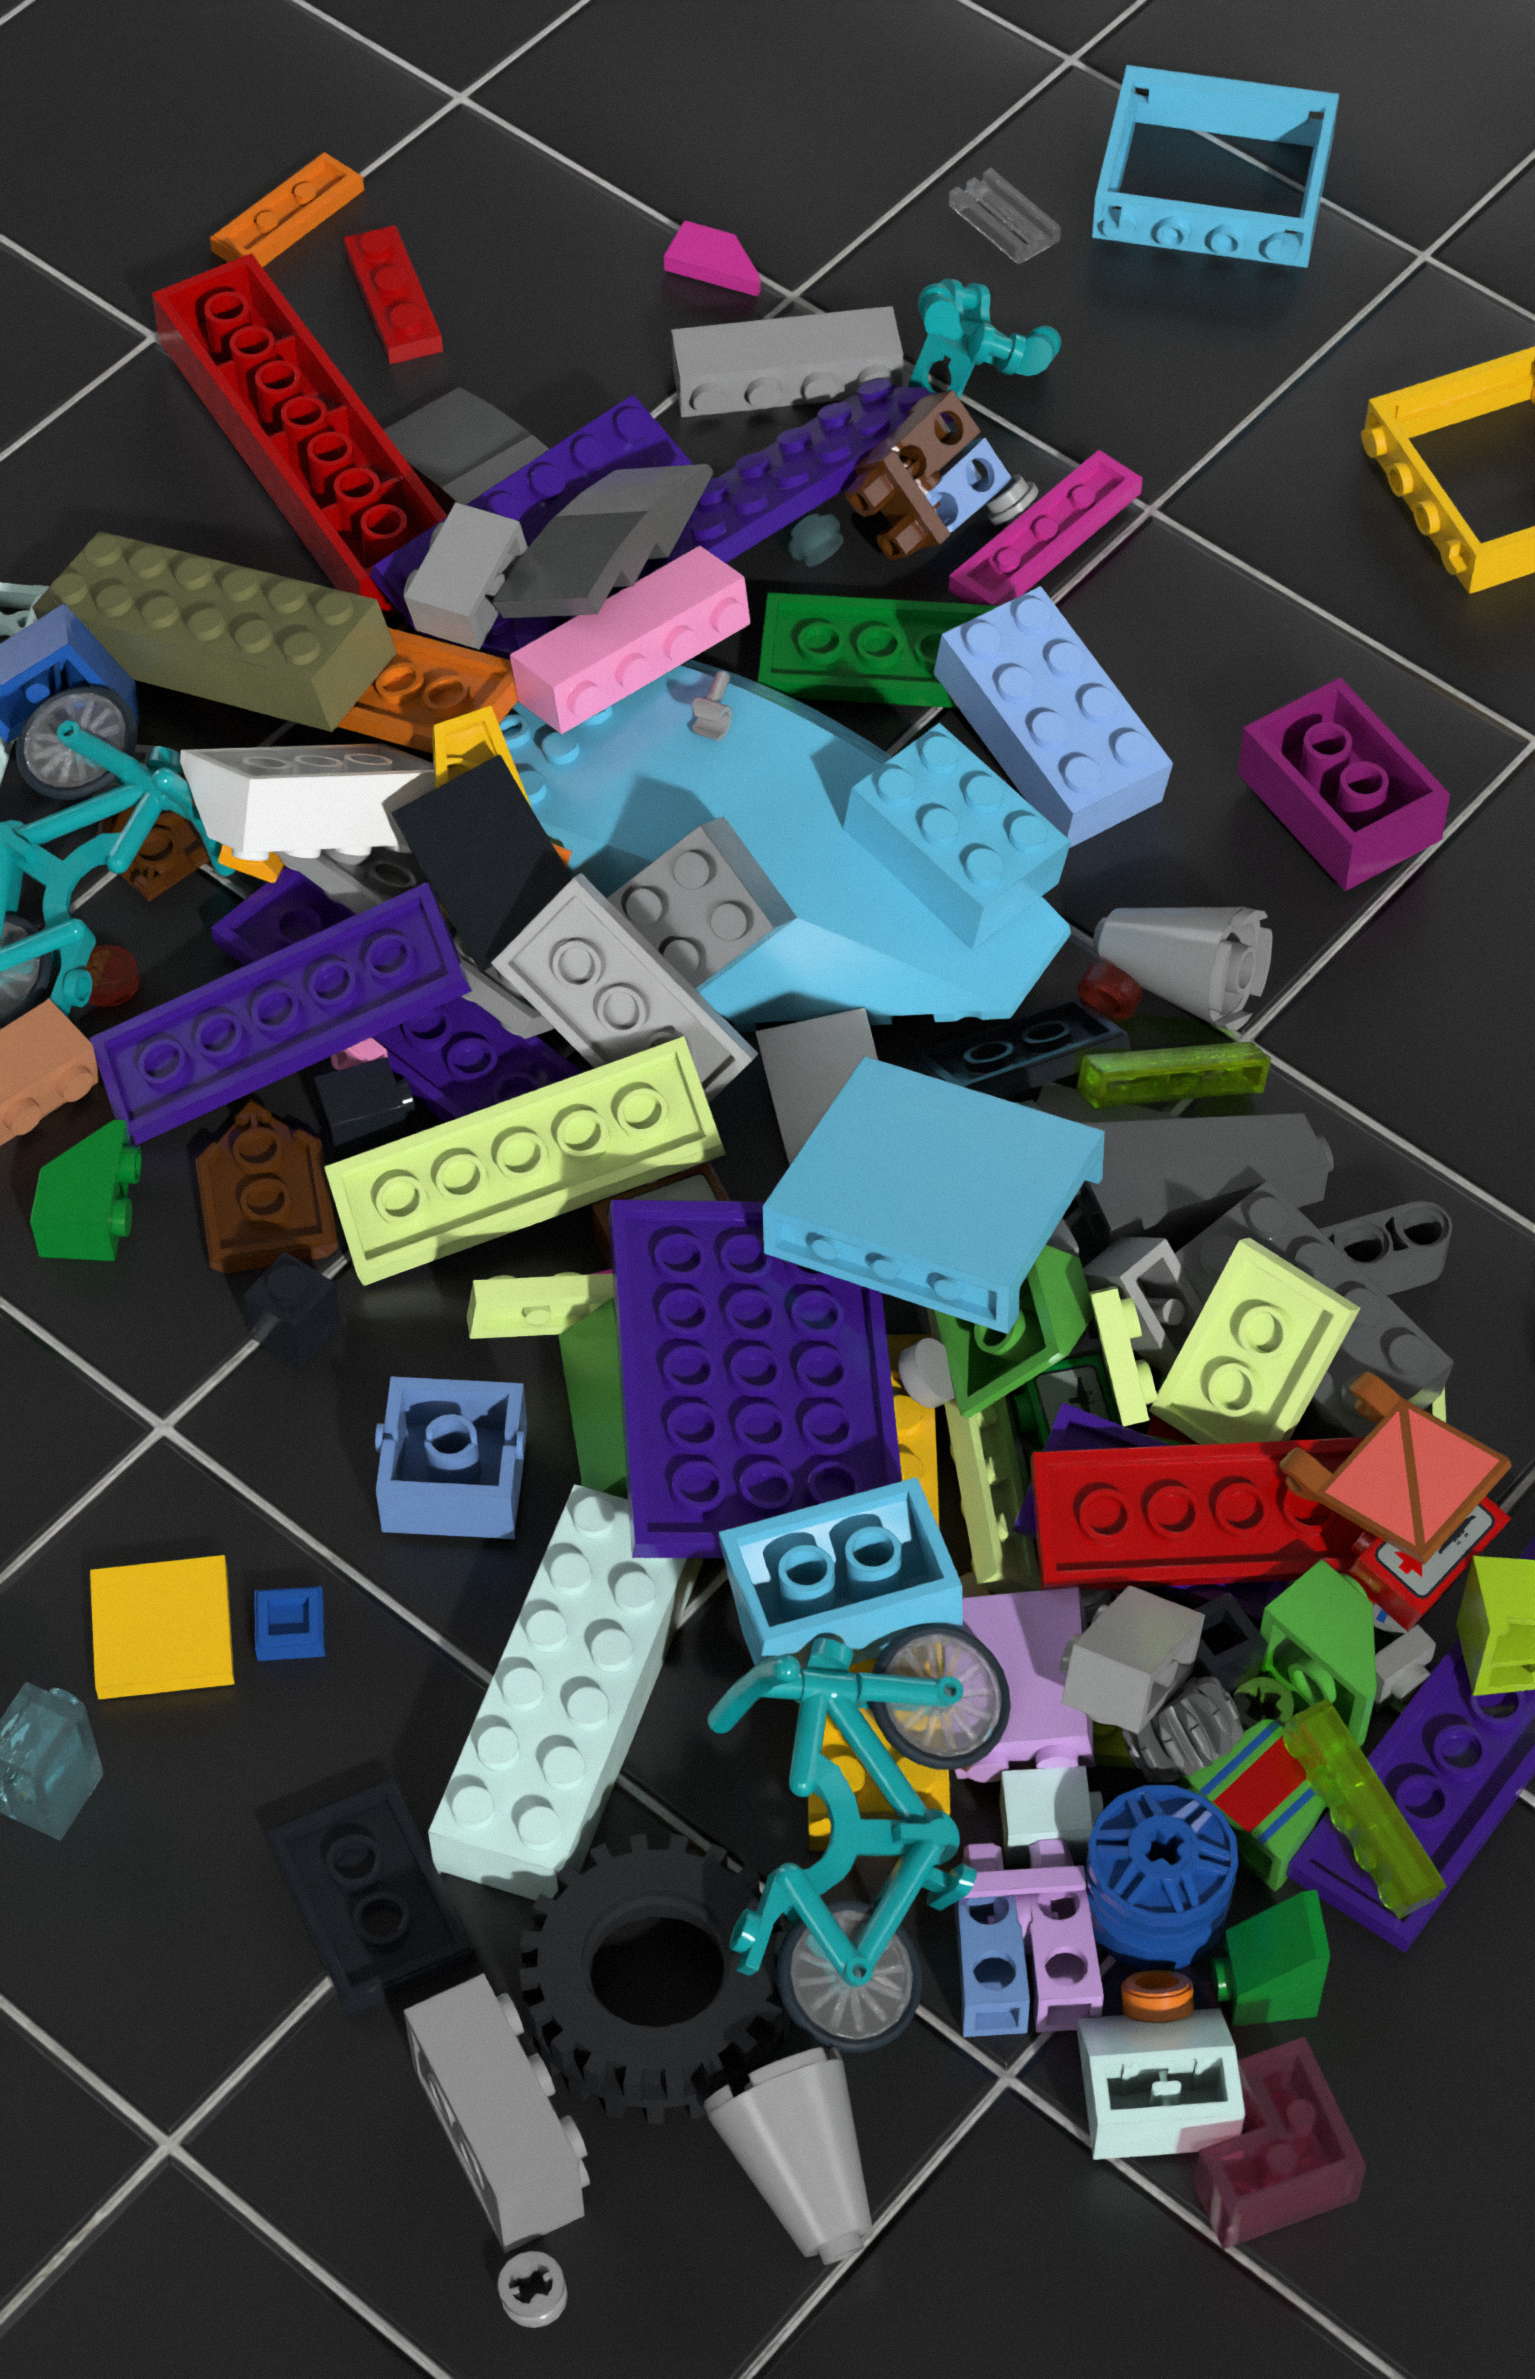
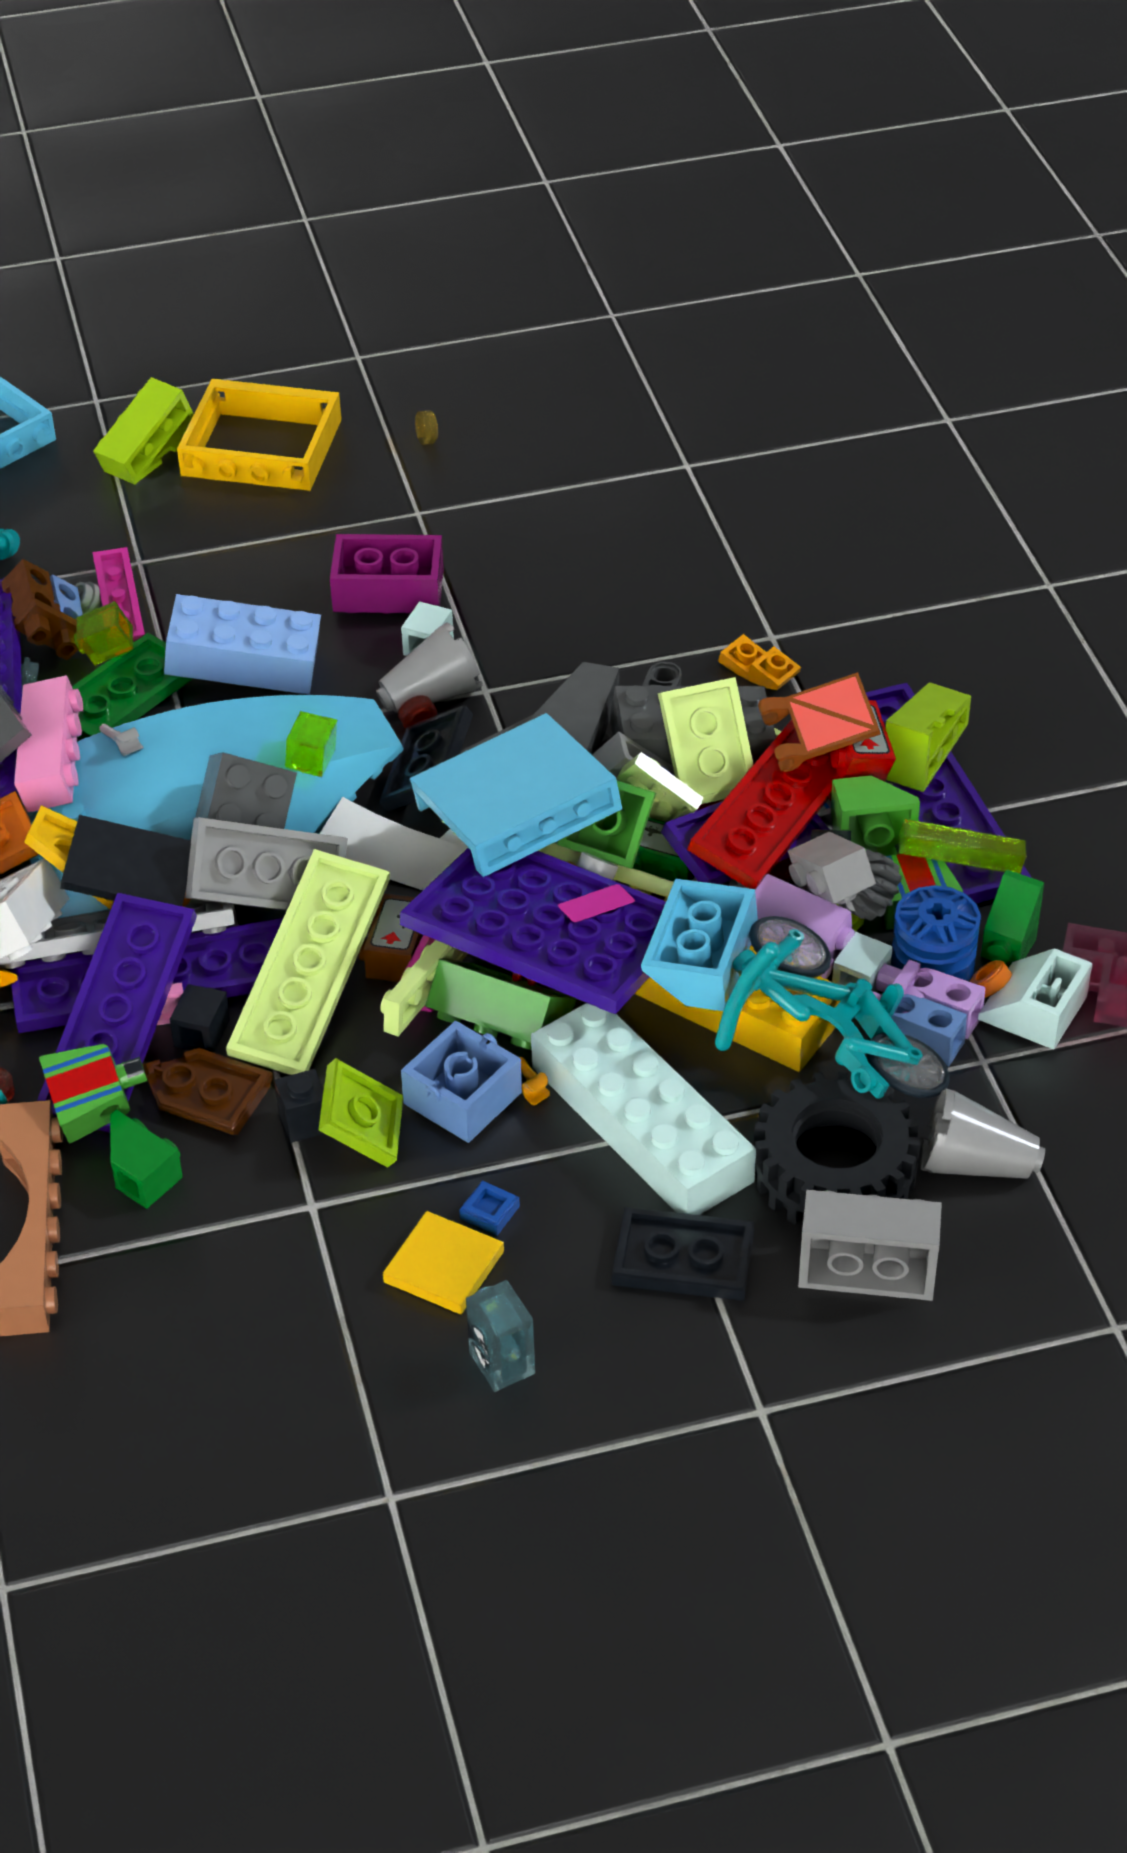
camera: 55 degrees left, 10 degrees down
(129, 1069) = (88, 1087): none -> torso
(316, 1380) = (361, 1113): none -> lime tile
(530, 1548) = (534, 1088): none -> light orange hand
(542, 2308) = (966, 1282): light grey bush -> none
(823, 1412) = (596, 903): none -> dark pink sticker
(865, 910) = (311, 743): none -> clear neon green brick
(933, 563) = (104, 633): none -> clear neon green brick
(956, 835) = (284, 682): medium azure brick -> none
(1173, 1074) = (495, 710): clear neon green piece -> none
(1288, 895) = (422, 623): none -> light aqua brick
(1373, 345) = (145, 432): none -> lime wedge

